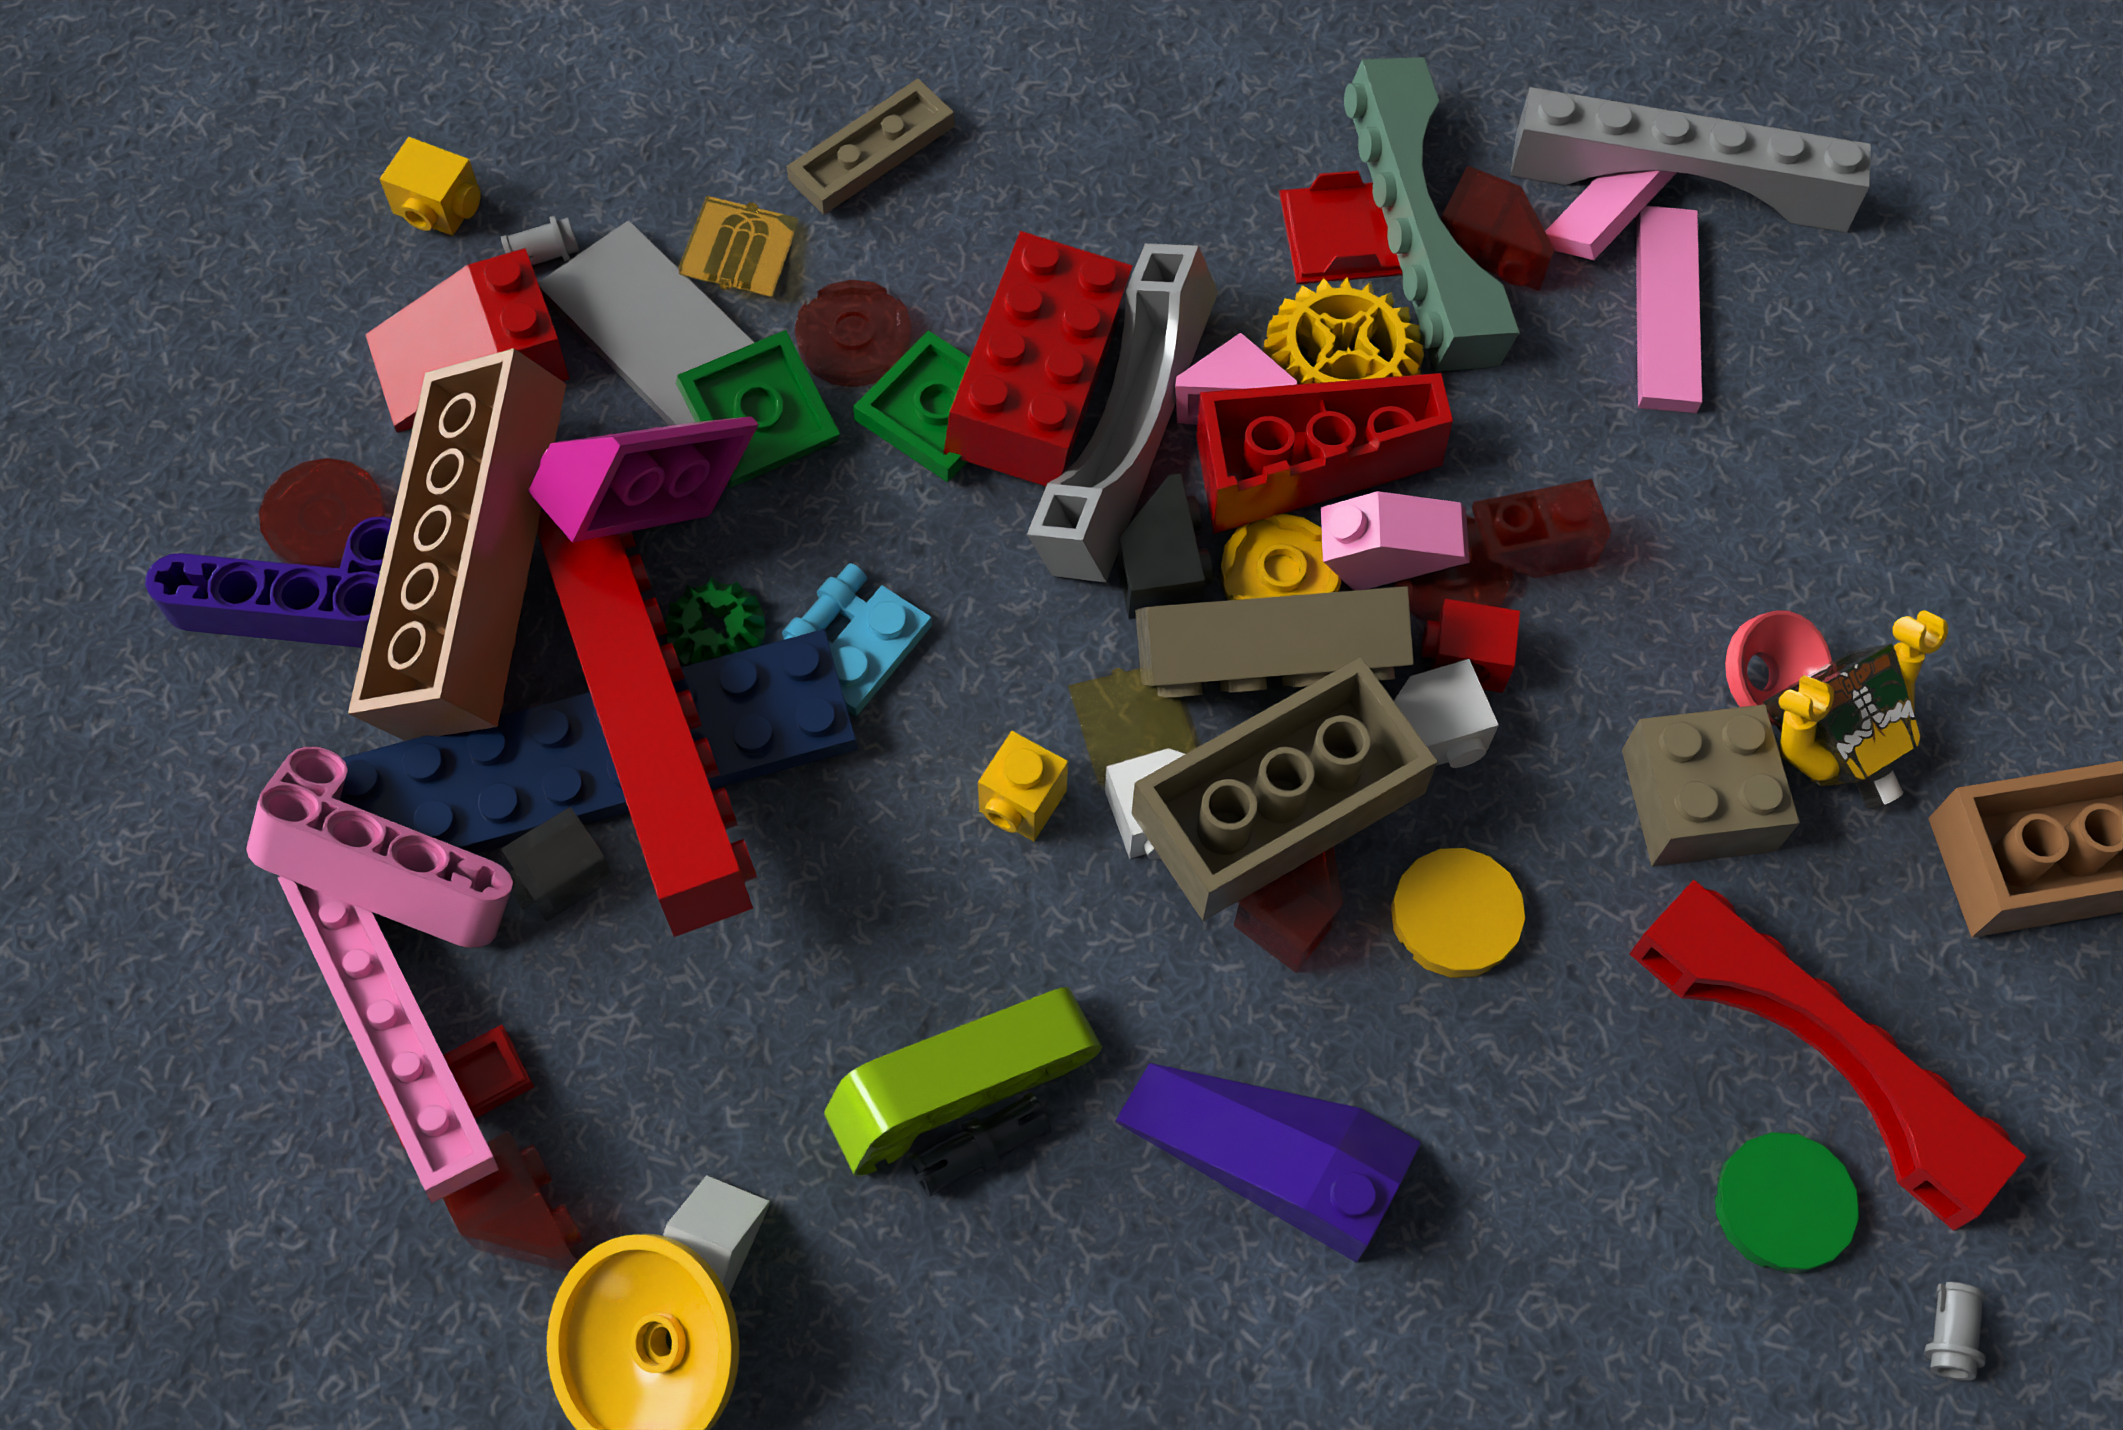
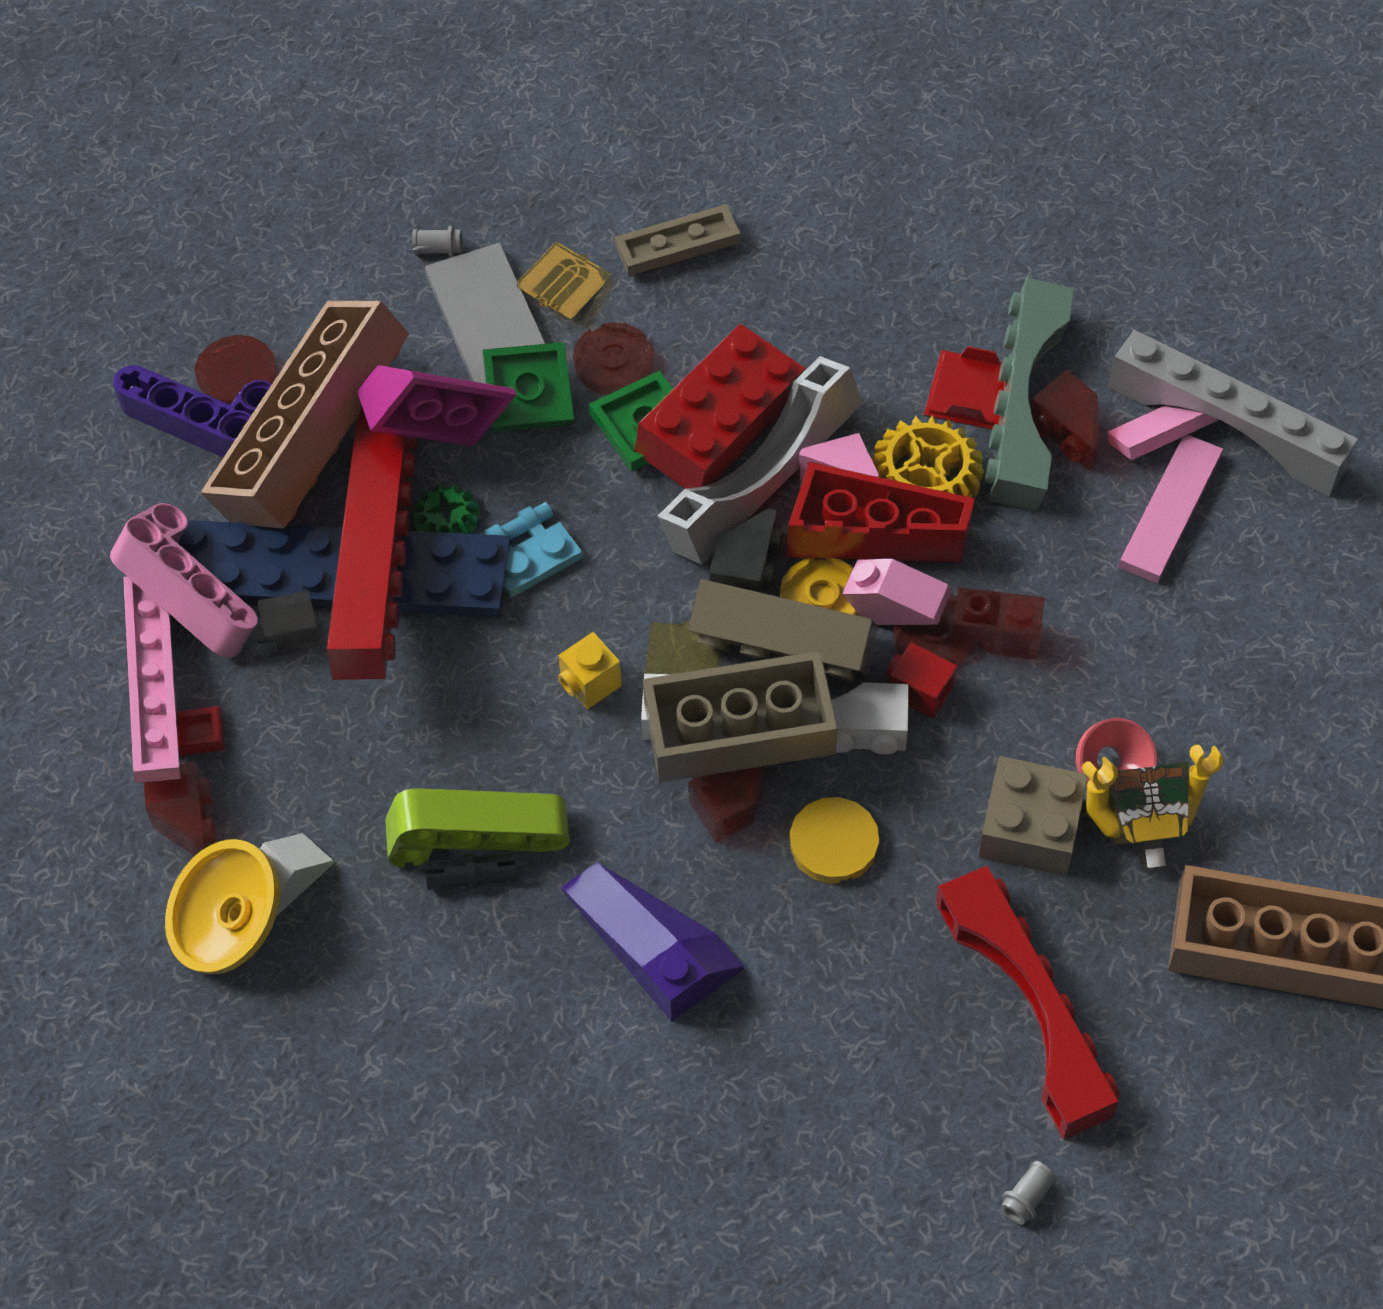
camera: 25 degrees right, 5 degrees down
(431, 187) = (383, 184): yellow brick -> none
(464, 318) = (377, 272): slope -> none
(1786, 1203) = (959, 1082): green tile -> none

